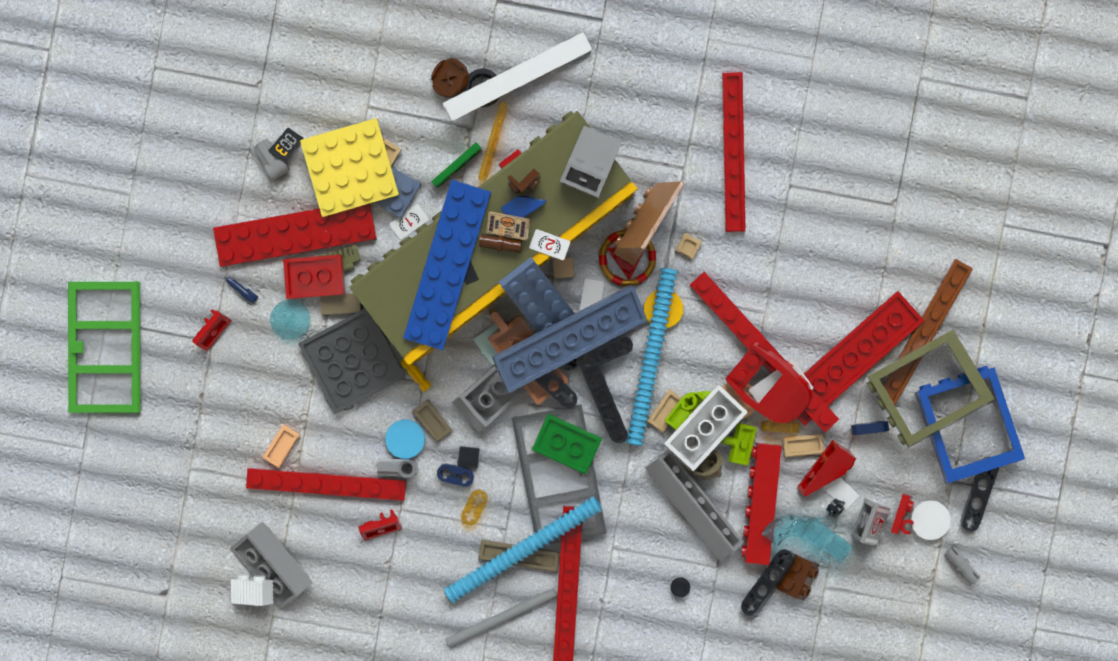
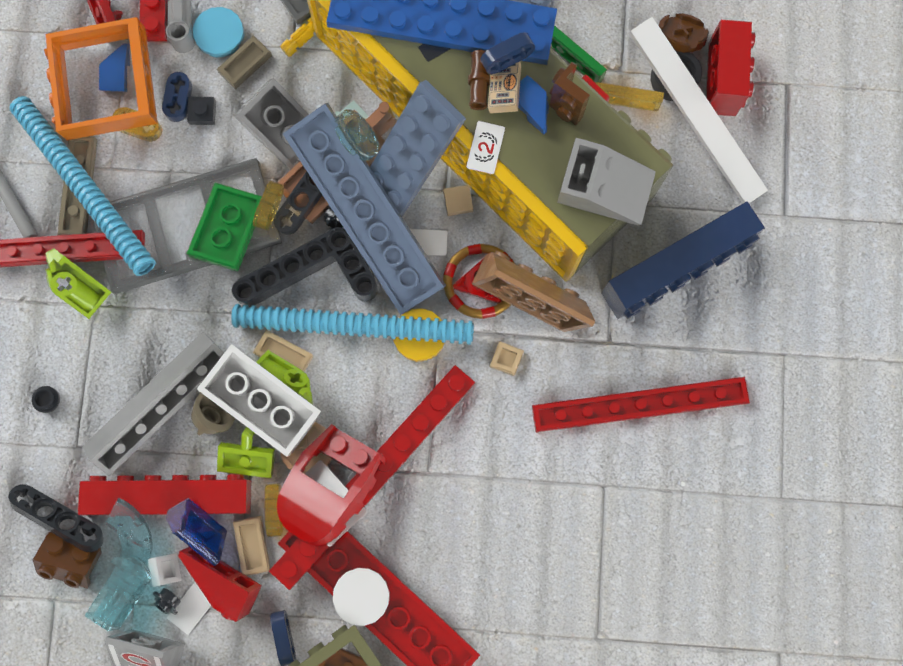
camera: 85 degrees right, 10 degrees down
(429, 521) = (114, 70): none -> blue slope
(432, 564) = (93, 35): none -> orange window
(486, 47) = (730, 66): none -> red brick
(487, 221) = (507, 53): none -> dark blue beam
(518, 337) = (356, 135): none -> clear light blue tile
(555, 410) = (268, 205): none -> clear yellow beam
(604, 553) = (83, 291): none -> lime piece
(633, 106) = (682, 260): none -> dark blue brick
(791, 480) = (197, 530): none -> clear blue tile
(813, 507) = (164, 570): none -> white plate
(849, 369) = (361, 596): none -> white tile

